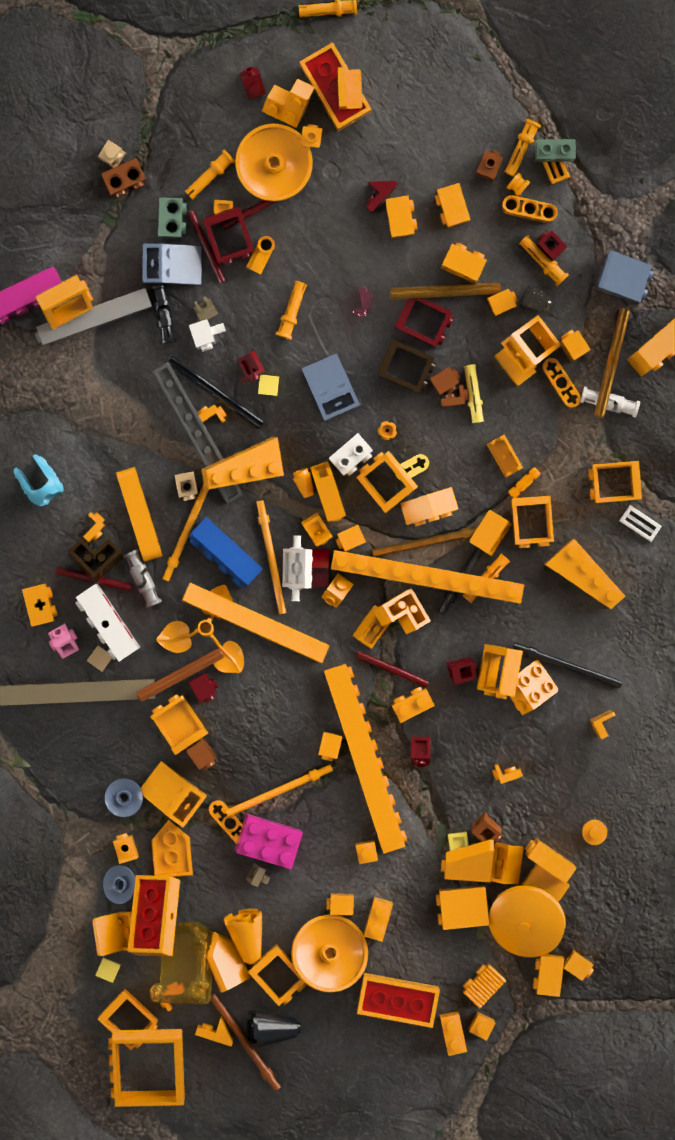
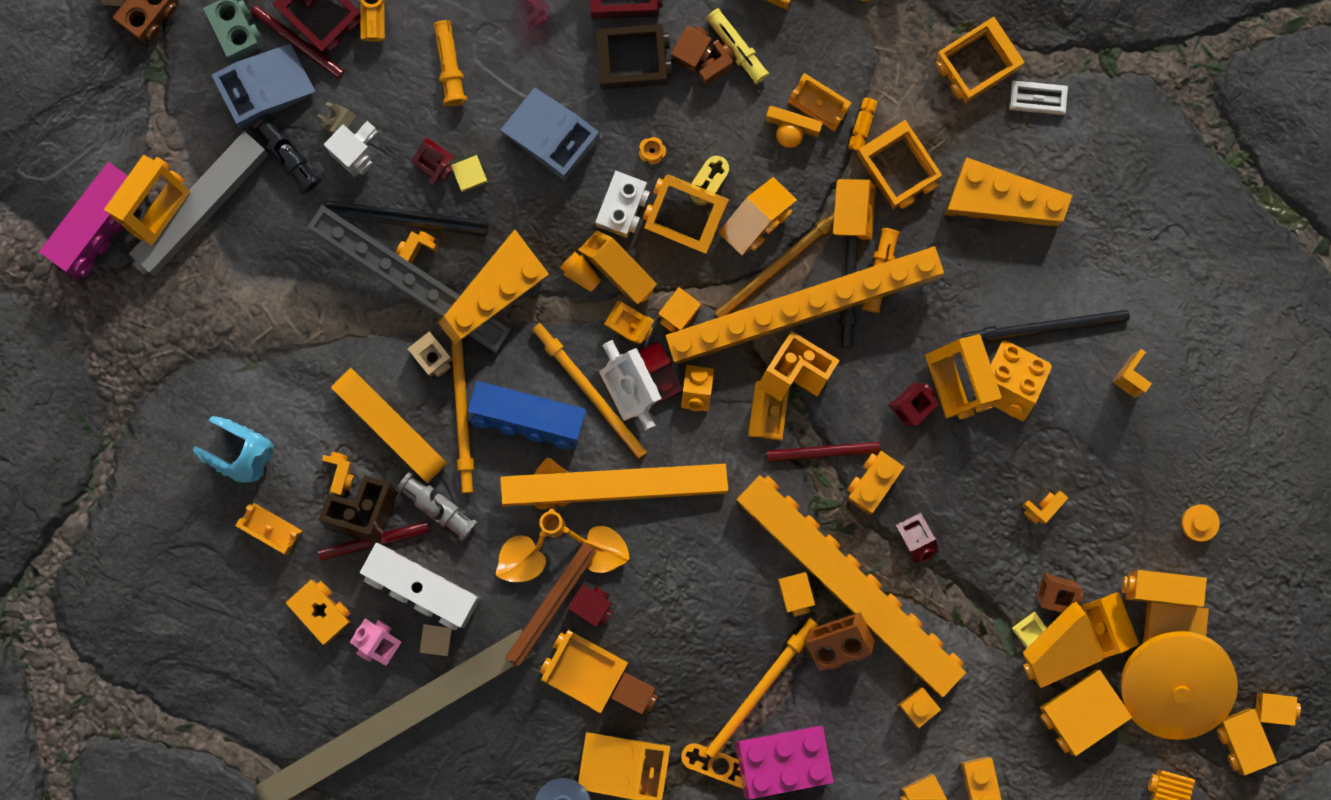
camera: 25 degrees left, 5 degrees down
(35, 538) = (269, 528): none -> light orange hinge
(336, 789) = (837, 636): none -> dark orange brick
(478, 463) = (792, 126): none -> light orange tile

